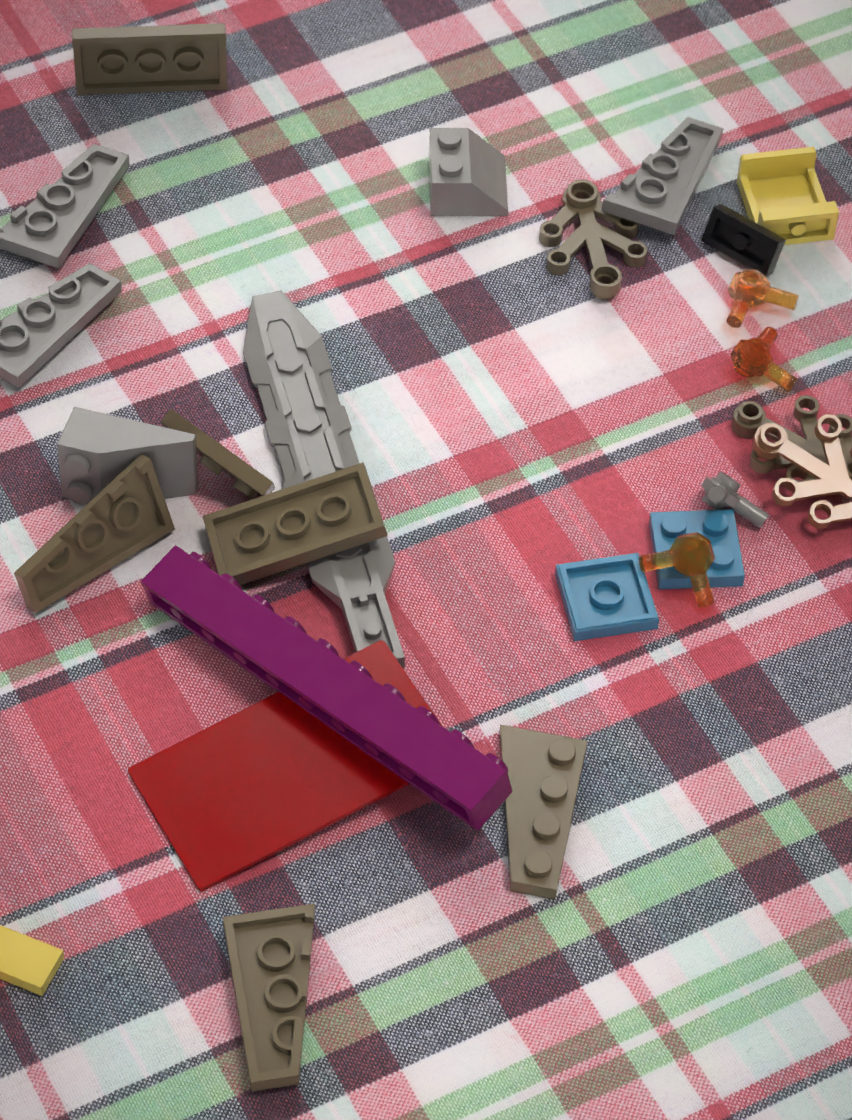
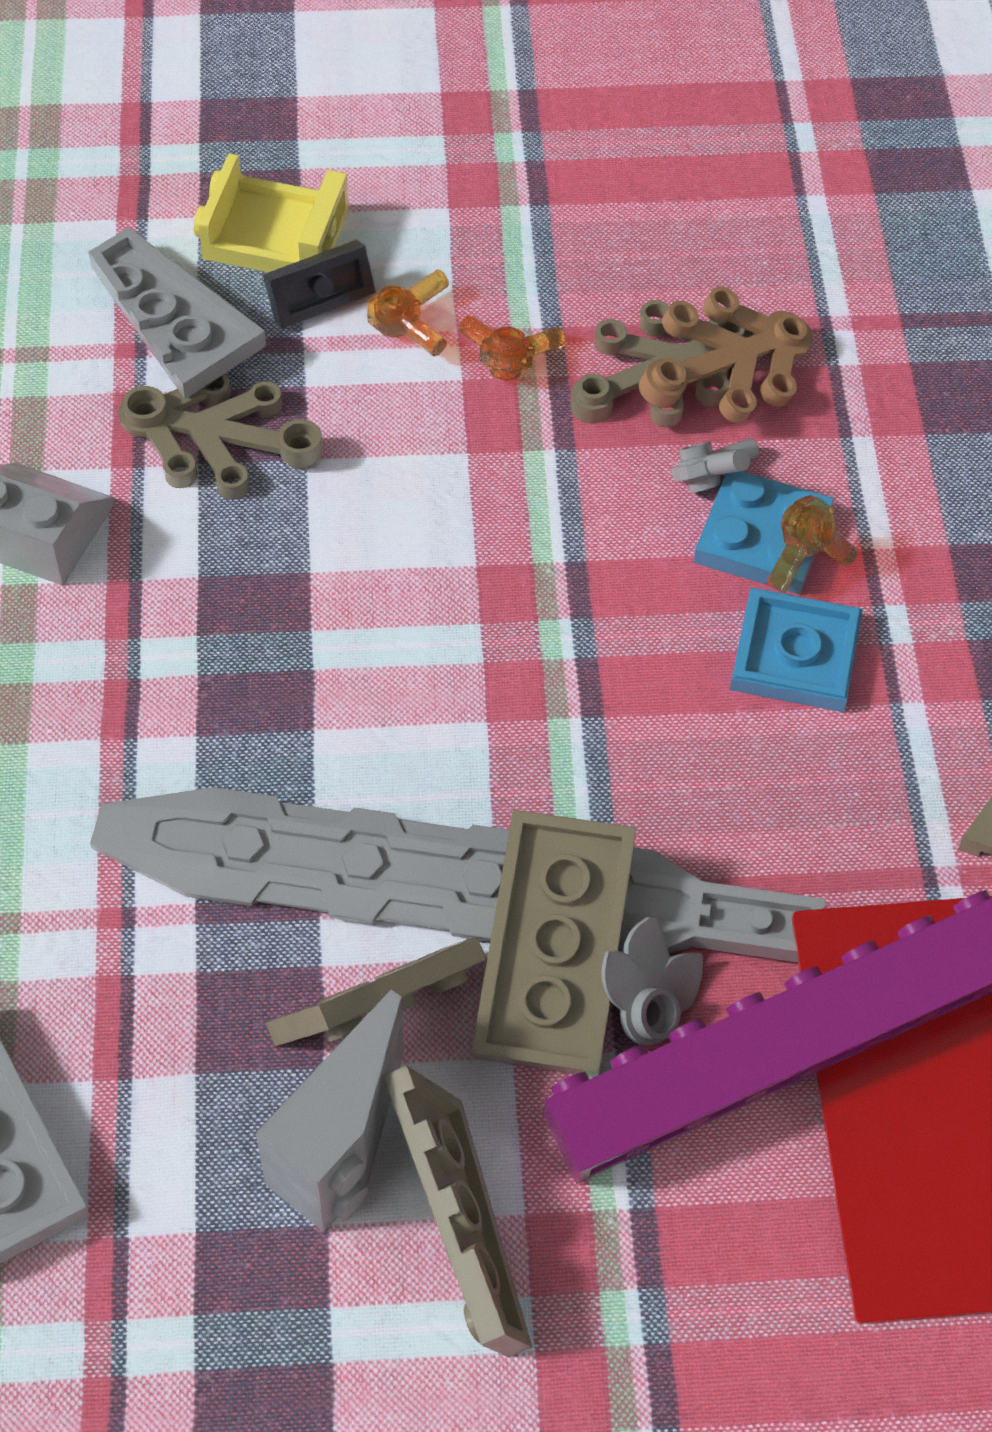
camera: 65 degrees left, 5 degrees up
(301, 582) = (650, 984): none -> light grey plate

